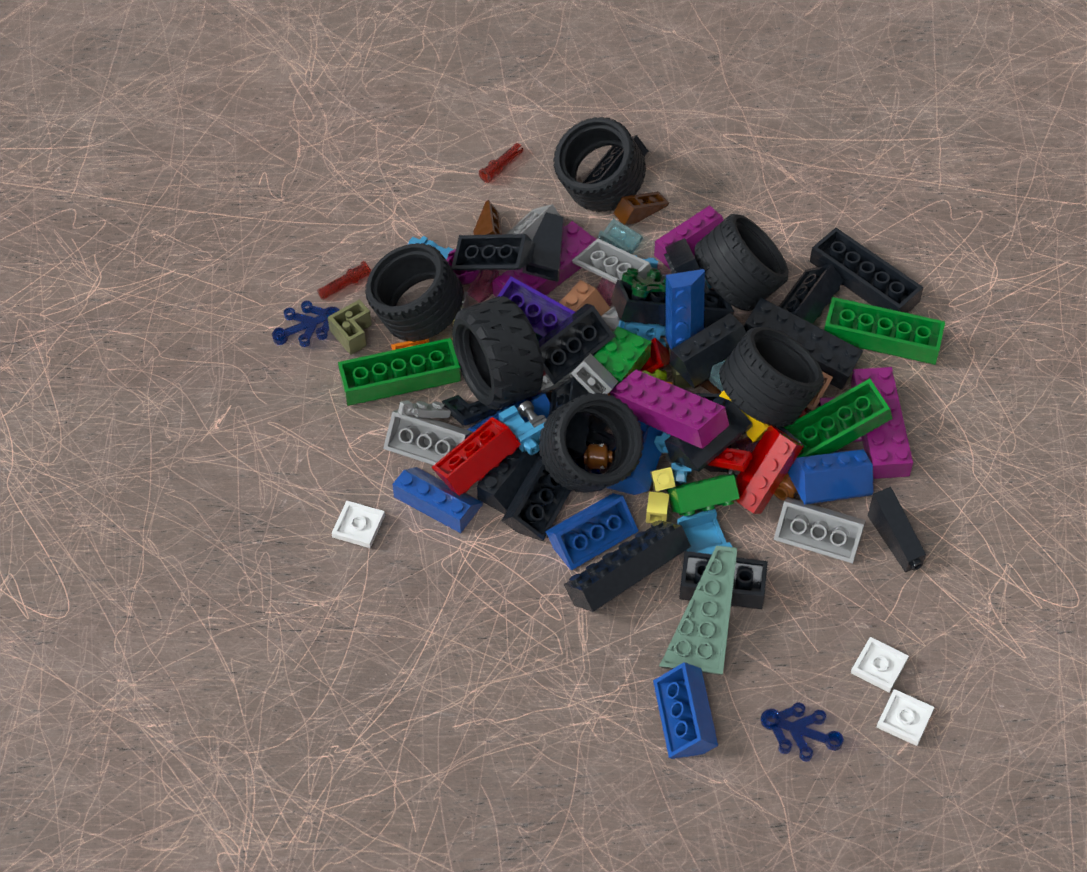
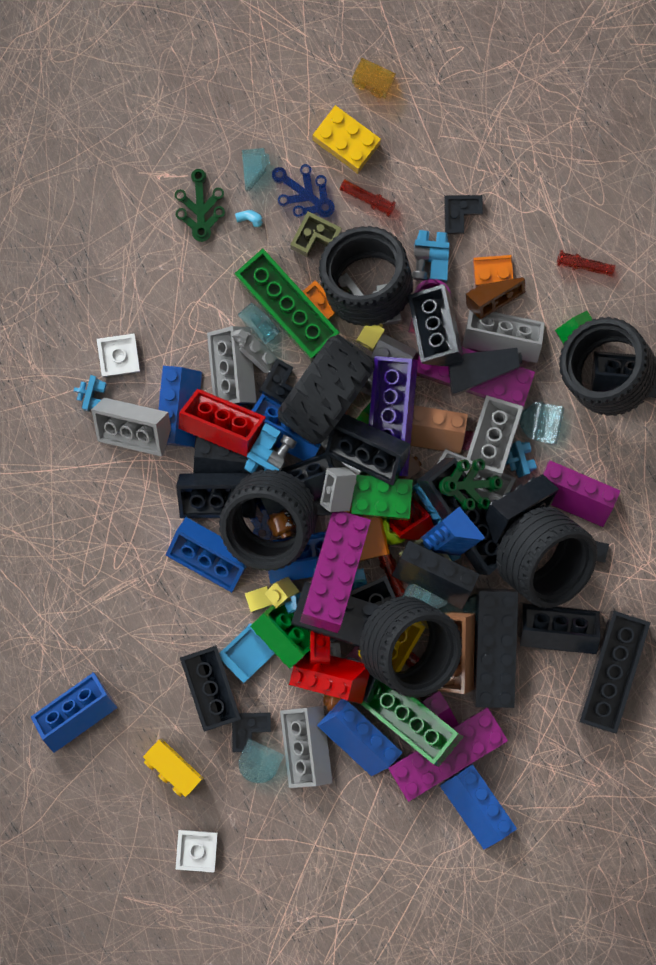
camera: 60 degrees right, 30 degrees up
(245, 235) = (373, 78): none -> clear yellow brick
(258, 348) = (254, 166): none -> clear light blue slope
(265, 405) = (200, 208): none -> dark green plant
(284, 273) = (346, 139): none -> yellow brick
(300, 370) = (250, 215): none -> medium azure arm
(377, 564) = (93, 385): none -> dark azure hips
(398, 225) = (456, 207): none -> black plate
(400, 393) = (259, 323): none -> clear light blue slope
(434, 532) = (131, 426): none -> light grey slope
(463, 222) = (492, 269): none -> orange plate
(551, 191) = (571, 325): none -> green slope
(626, 565) = (181, 603): black brick -> none
(638, 207) = (594, 424): reddish brown slope -> none
(705, 623) = (156, 693): sand green wing -> none
(777, 573) = (249, 723): none -> black plate
(786, 642) = (172, 768): none -> yellow brick
(798, 729) = (105, 808): clear blue plant -> none
(816, 572) = (259, 762): none -> clear light blue slope
(885, 330) = (553, 716): green brick -> none
(896, 529) = (332, 815): black slope -> none
(905, 717) = (156, 891): white plate -> none
(943, 418) = (478, 806): none -> blue slope

